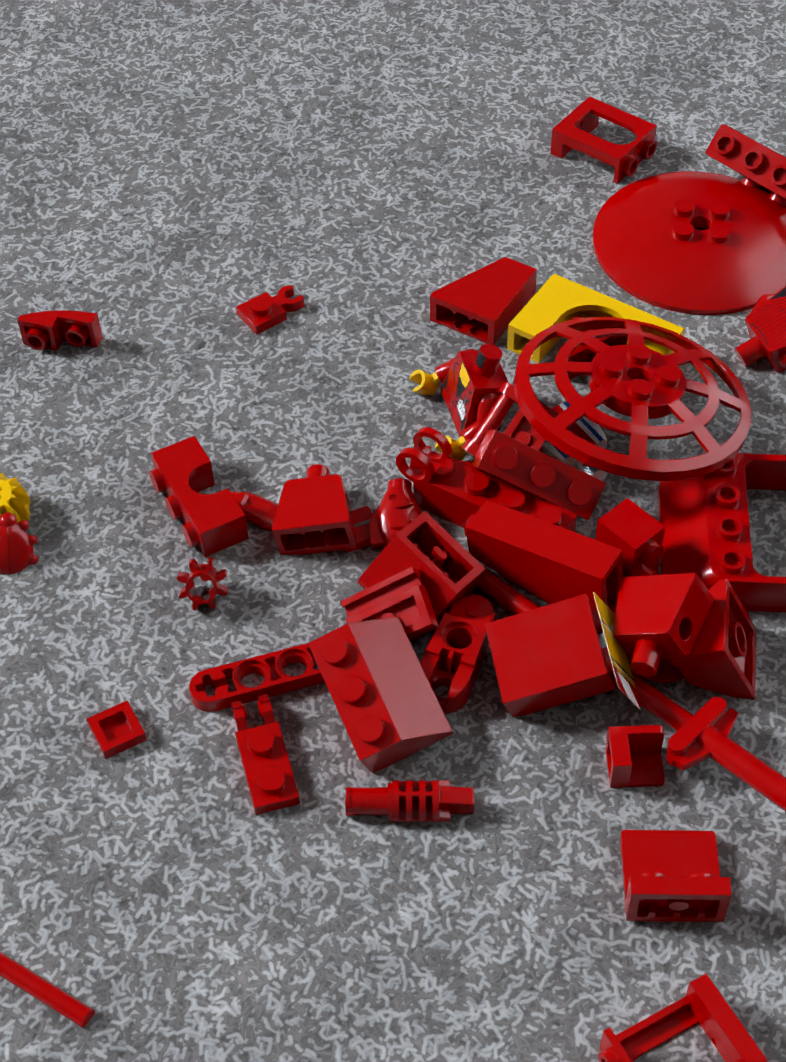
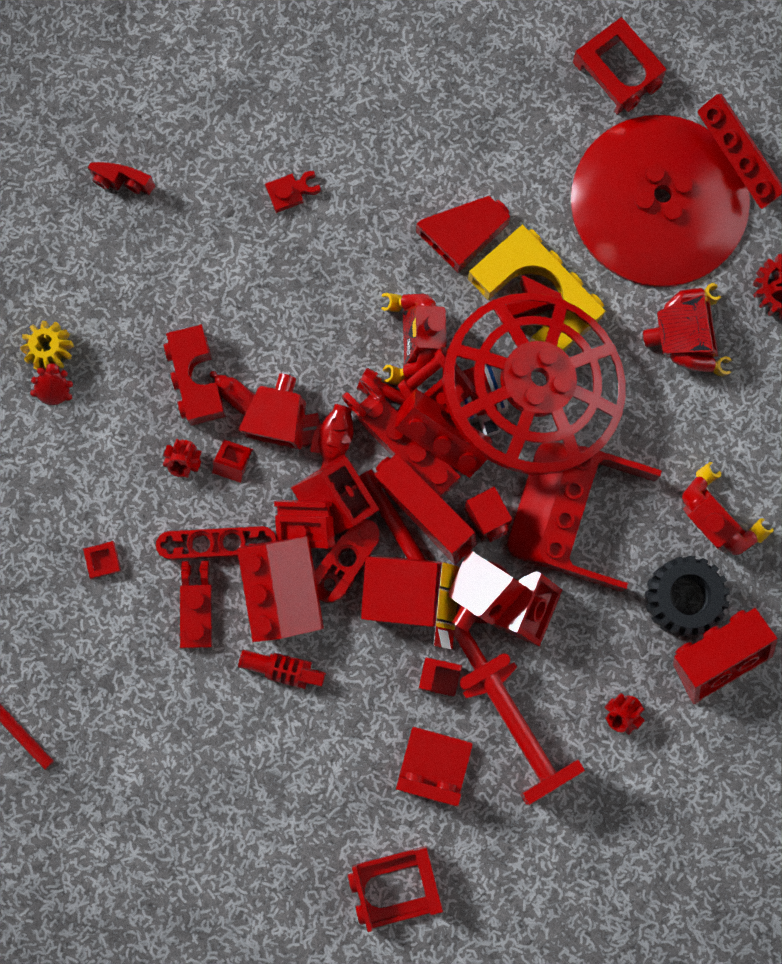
camera: 15 degrees right, 30 degrees up
(268, 582) = (231, 460): none -> red slope

